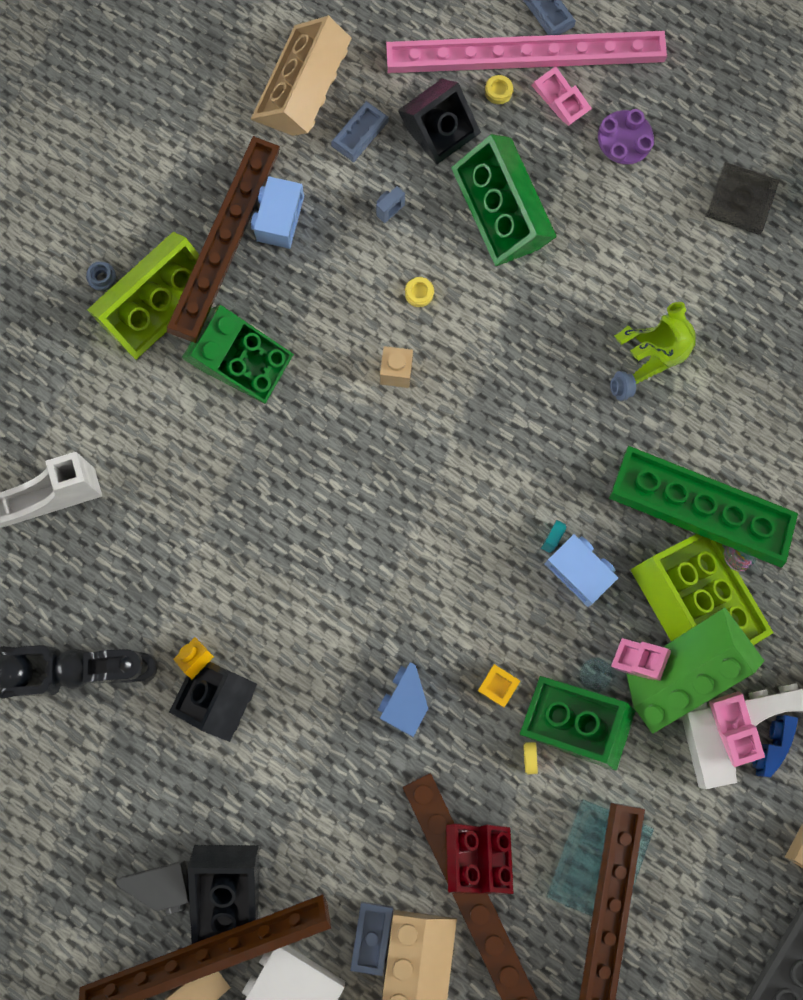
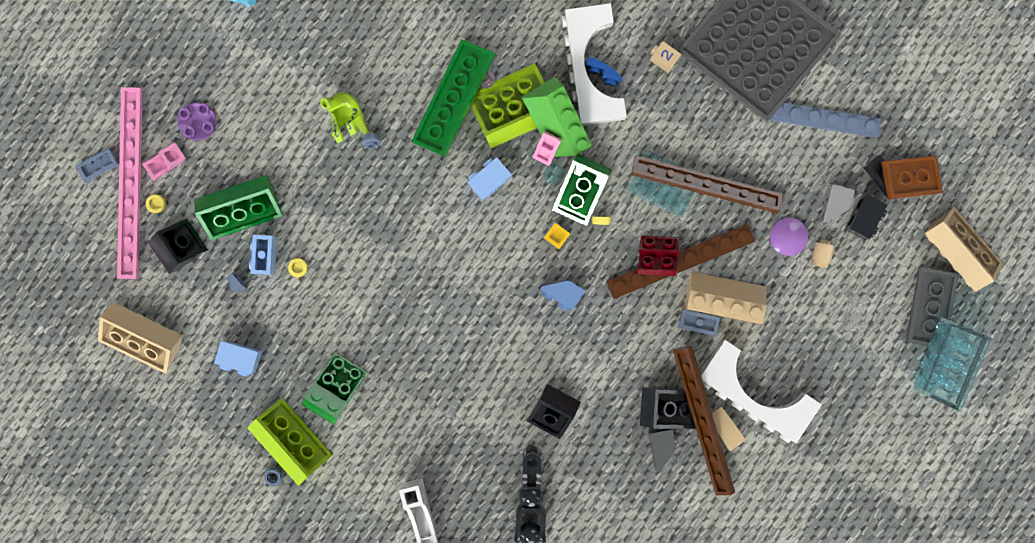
camera: 85 degrees left, 10 degrees up
(193, 658) = (528, 422): yellow plate -> none
(223, 240) = (254, 393): reddish brown plate -> none
(359, 131) = (181, 300): sand blue plate -> none
(396, 367) = (349, 286): tan brick -> none
(435, 238) = (263, 254): none -> light blue brick
(554, 536) = (466, 193): teal tile -> none
(736, 730) = (592, 95): bright pink slope -> none
(742, 198) = (246, 48): clear smoke plate -> none

